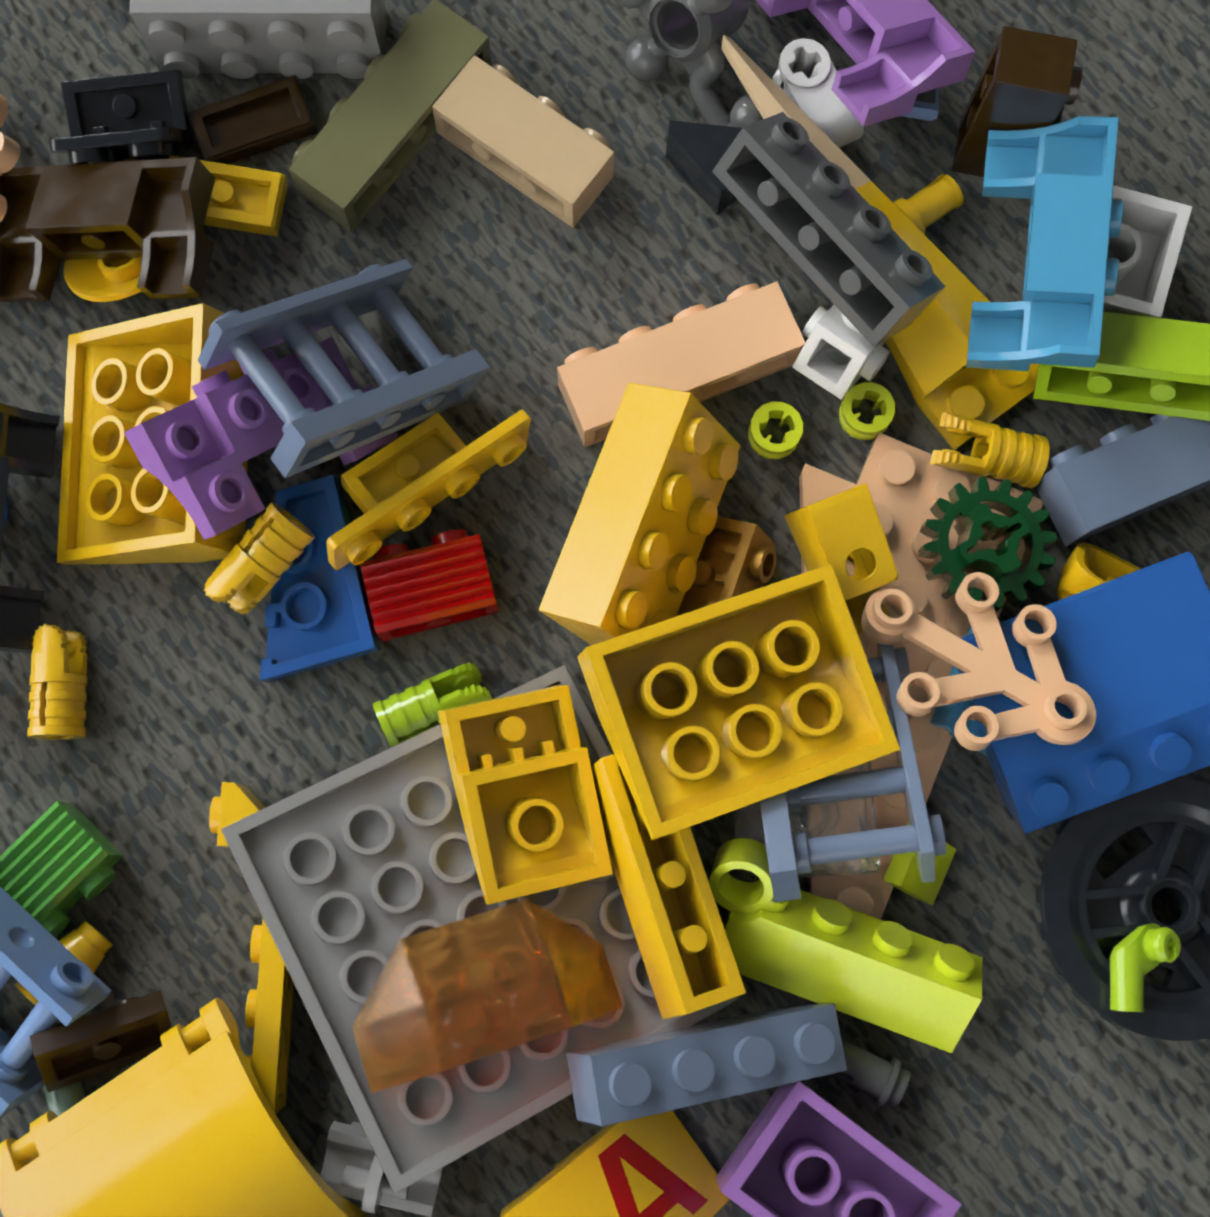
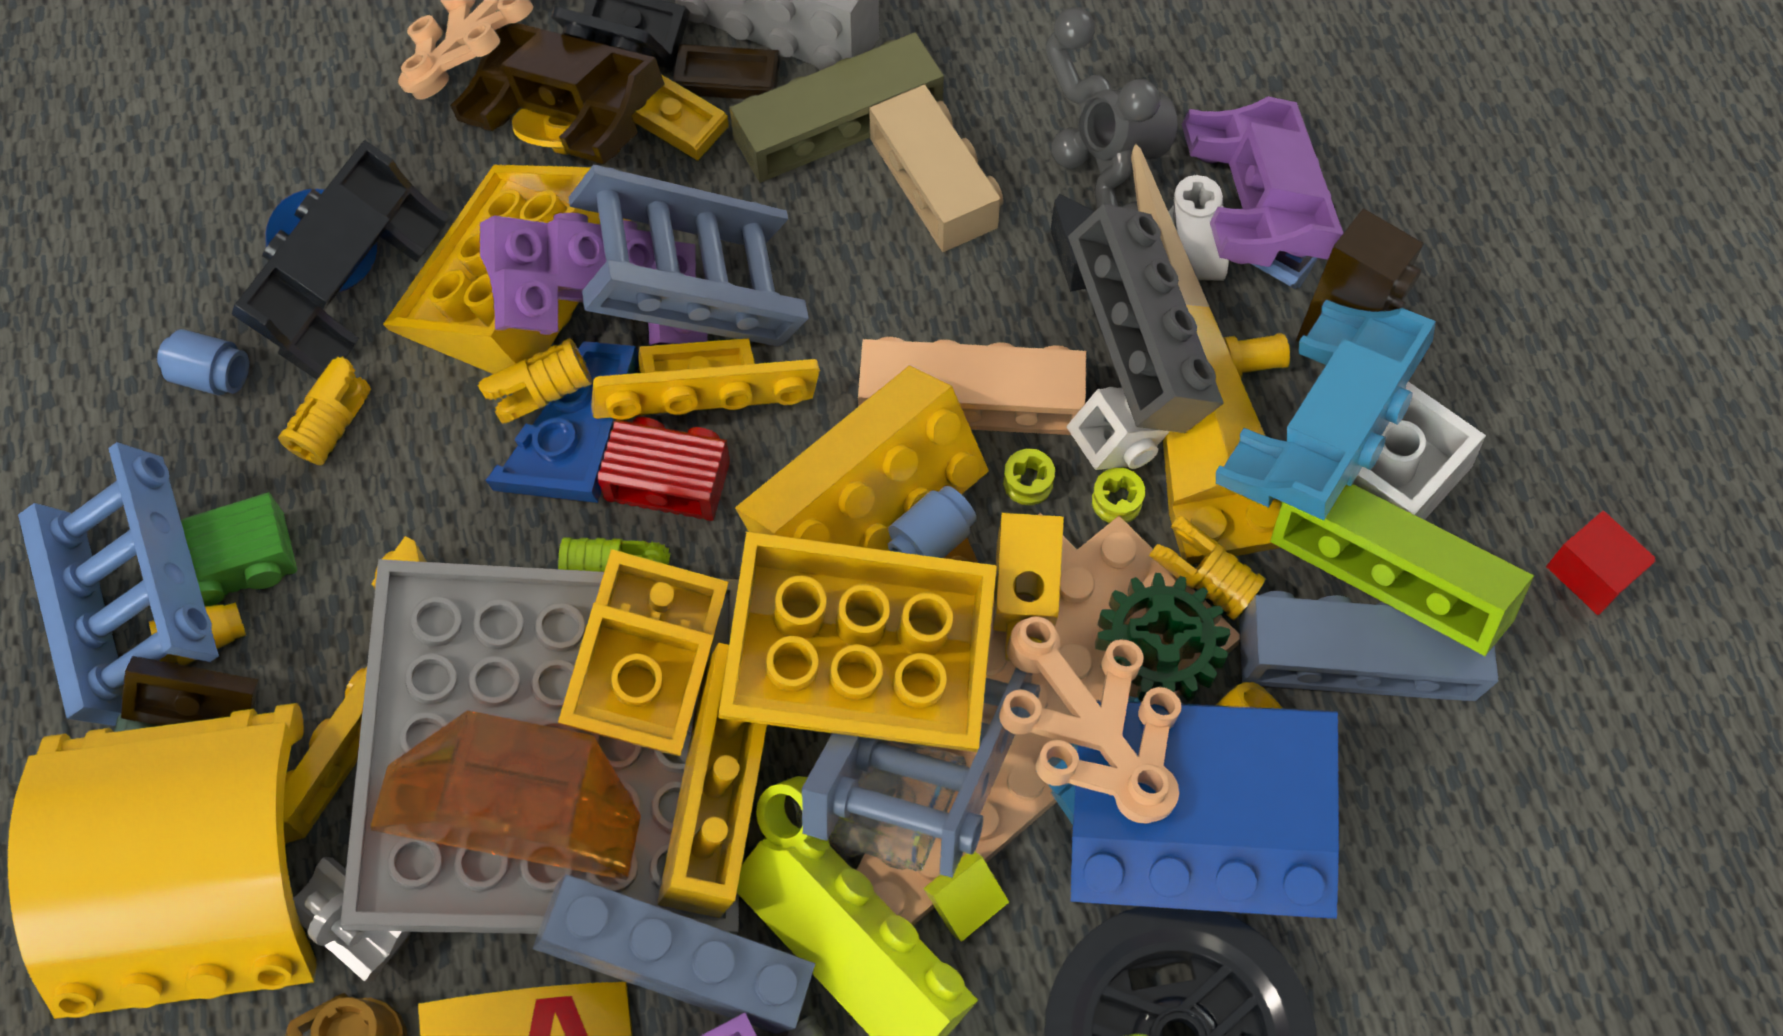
camera: 30 degrees right, 15 degrees down
(729, 539) = (933, 524): none -> medium blue brick

